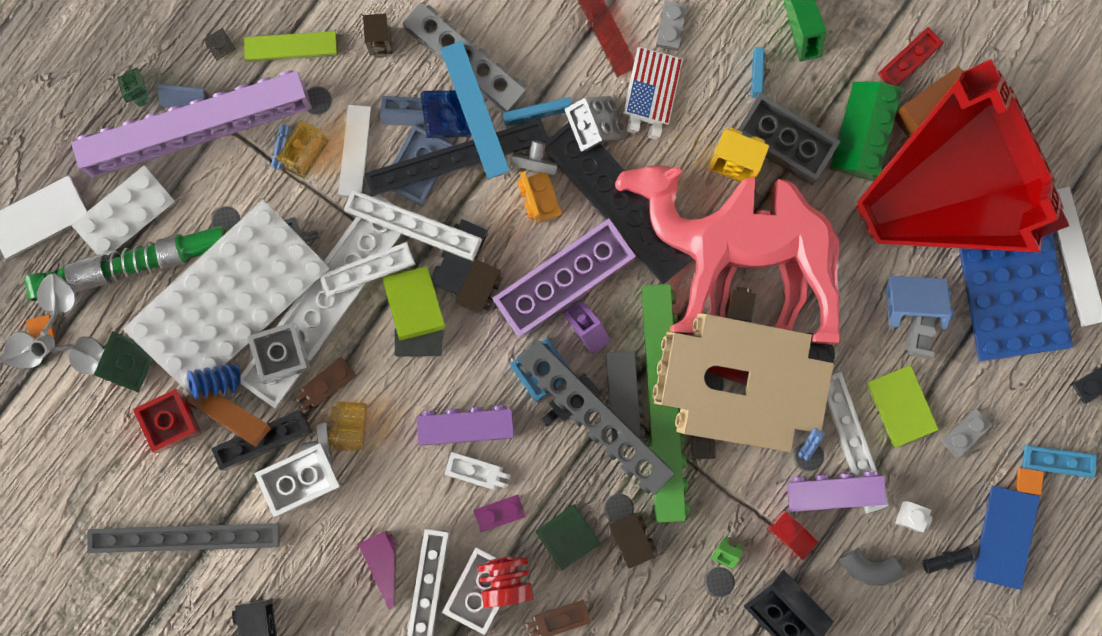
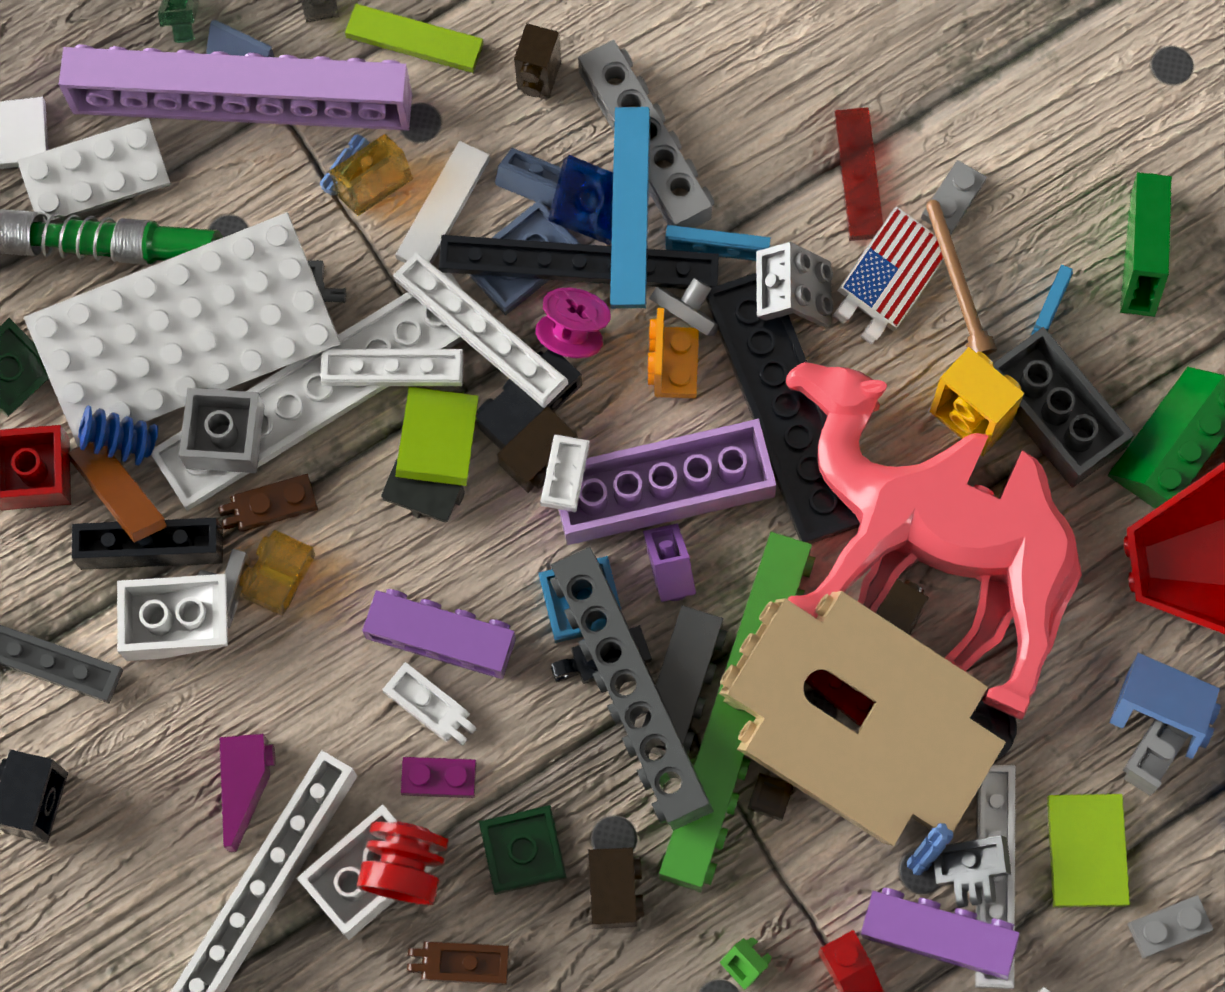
camera: 25 degrees right, 10 degrees down
(468, 198) = (573, 322): none -> dark pink piece
(504, 299) = (565, 473): none -> white plate
(721, 113) = (978, 339): none -> medium nougat piece
(840, 445) = (973, 868): none -> hinge

